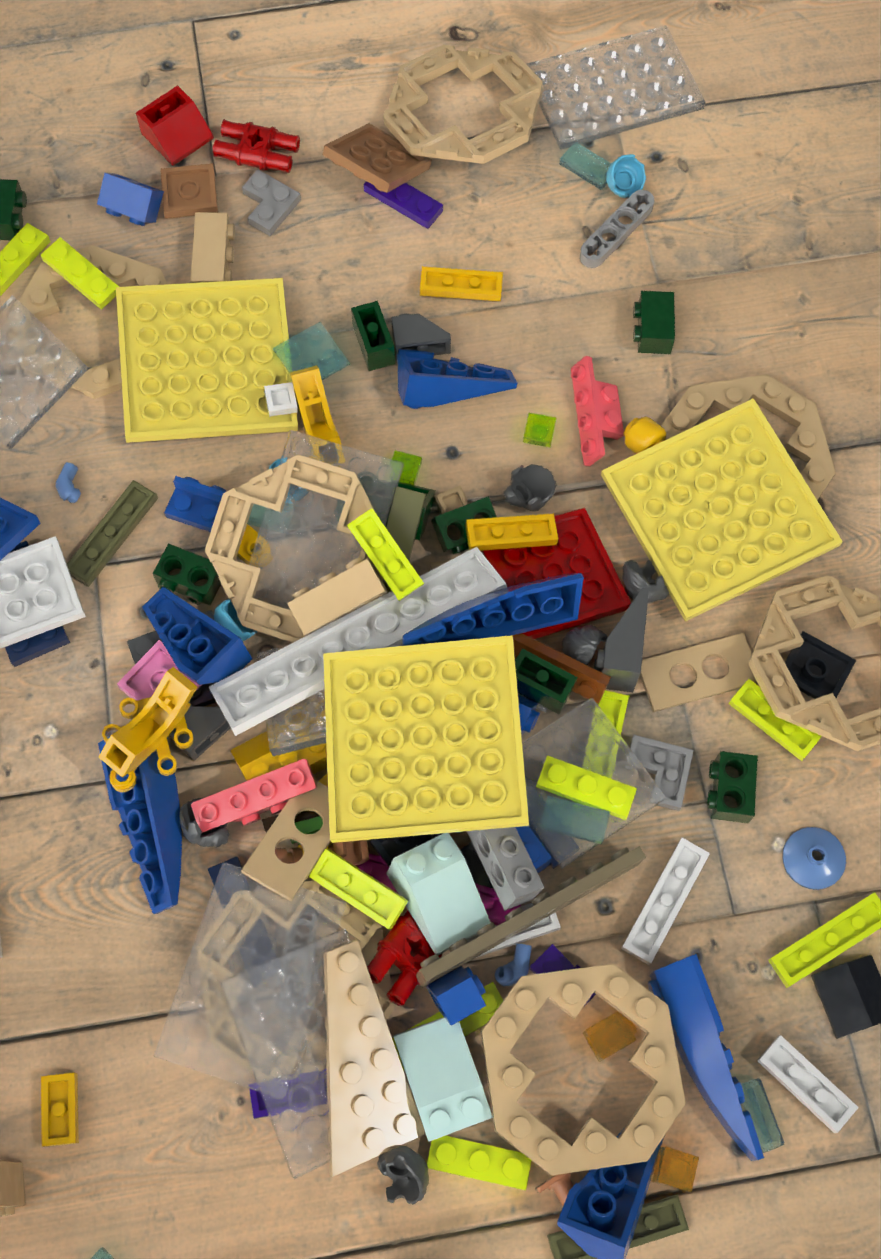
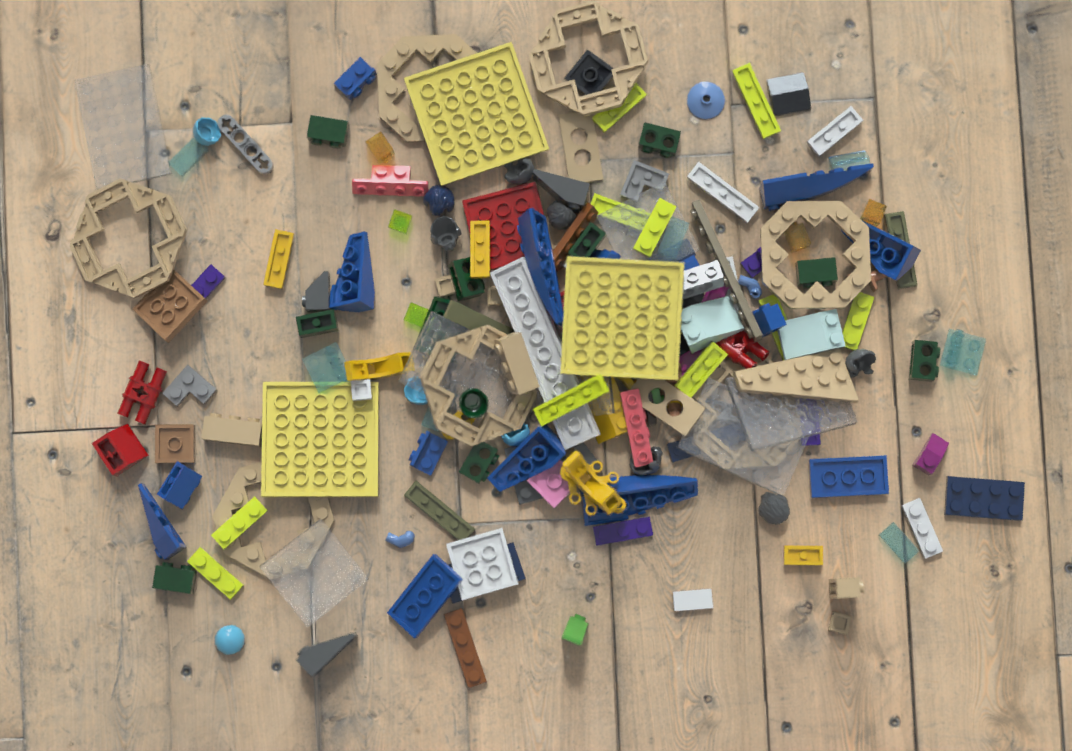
camera: 80 degrees left, 15 degrees up
(72, 186) = (163, 533): none -> blue wedge
(92, 803) = (622, 531): none -> dark purple plate
(134, 1047) = (774, 508): none -> dark grey hair
(201, 1179) = (848, 476): none -> blue plate
(270, 543) = (473, 403): none -> dark green hair
(284, 679) = (571, 400): none -> neon yellow plate
(385, 554) = (495, 329): neon yellow plate -> none
(555, 1077) = (814, 270): none -> dark green brick
(581, 476) = (439, 199): none -> dark blue hair
(643, 434) = (416, 153): yellow head -> none
(644, 390) = (380, 148): none -> clear yellow brick
(739, 351) = (355, 78): none -> blue bracket

